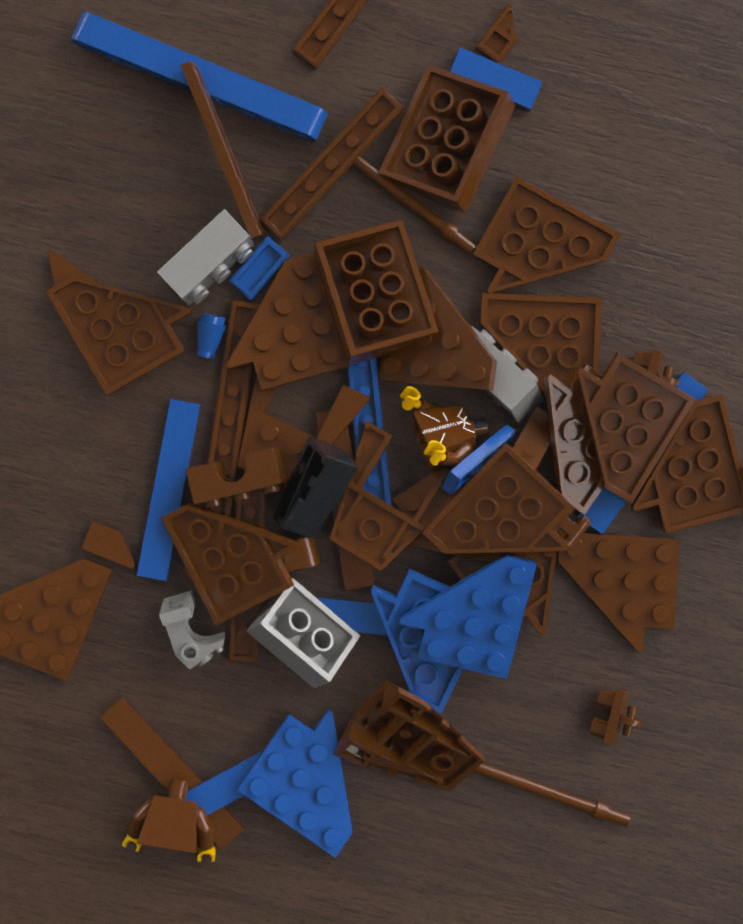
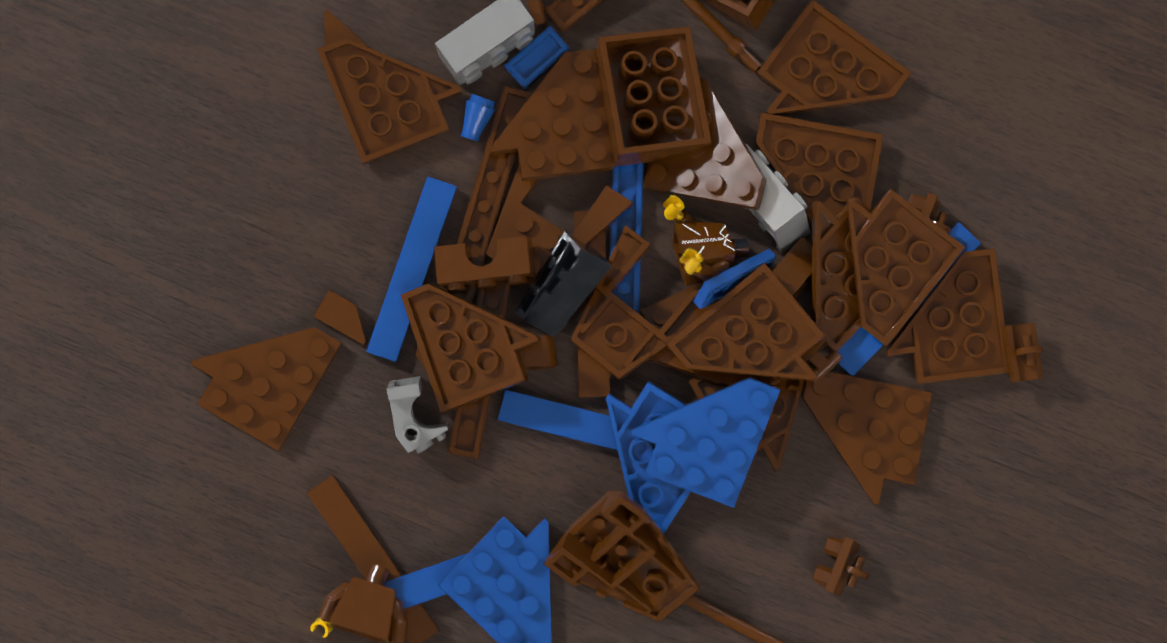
camera: 10 degrees right, 5 degrees down
(304, 634) = (530, 434): light grey slope -> none

